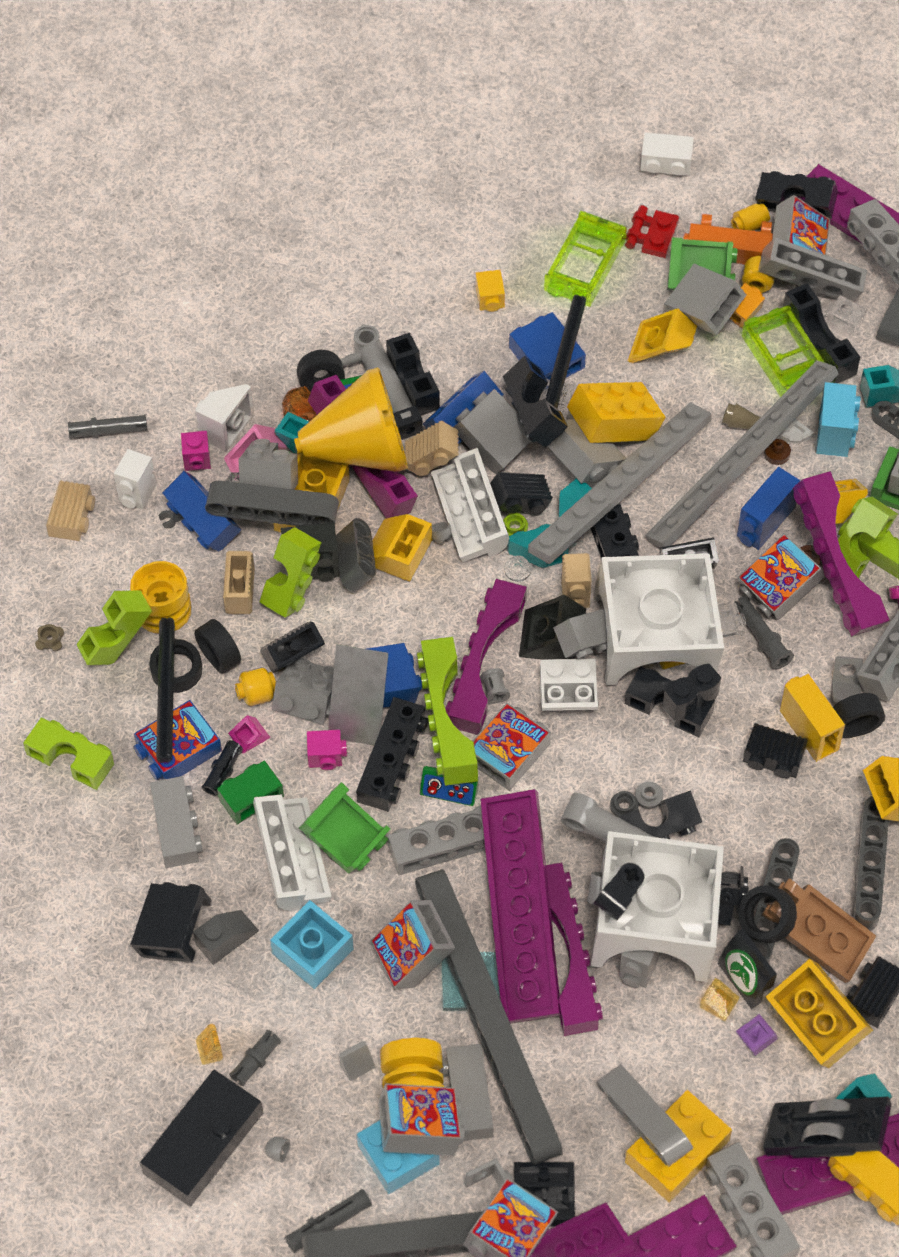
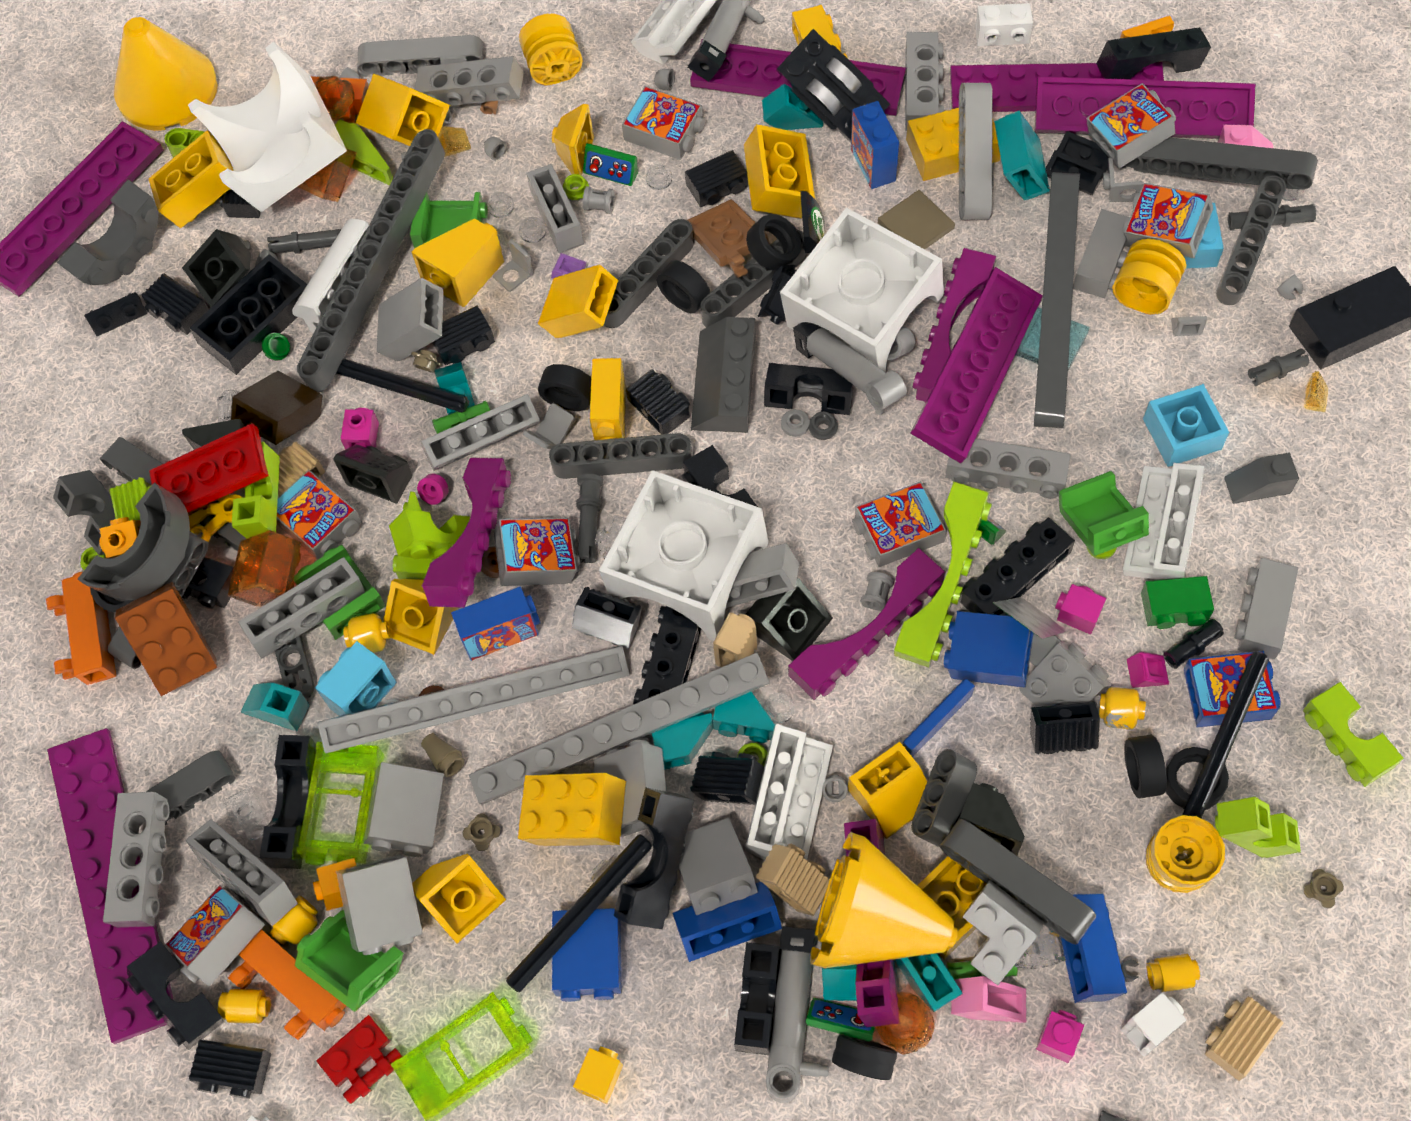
camera: 145 degrees left, 5 degrees up
(135, 527) = (1173, 973): none -> yellow brick
(169, 921) = (1313, 507): black panel -> none
(225, 415) = (1010, 1057): white slope -> none
(238, 582) = (1087, 832): tan brick -> none
(299, 556) = (1031, 793): lime arch -> none
(331, 1153) = (1258, 231): none -> dark grey beam
(393, 610) = (939, 717): none -> blue tile
(412, 944) = (1095, 372): brick -> none
(568, 684) = (815, 544): white slope -> none
(600, 1147) = (1021, 156): none -> teal brick
(620, 890) = (905, 273): black piece -> none
(663, 1046) = (917, 220): none -> dark tan tile
(675, 382) = (481, 823): none -> dark tan plate
(689, 692) = (705, 463): black brick -> none
(730, 185) = (229, 1067): none -> black brick
(733, 803) = (724, 376): none -> dark grey slope
(737, 365) = (403, 809): none -> light grey brick
(746, 1082) = (874, 144): none -> blue brick
(757, 1034) = (834, 194): medium lavender tile -> none
(764, 700) = (609, 449): none -> dark grey beam
(825, 855) = (682, 286): none -> black tyre
(862, 463) = (368, 631): none -> yellow head

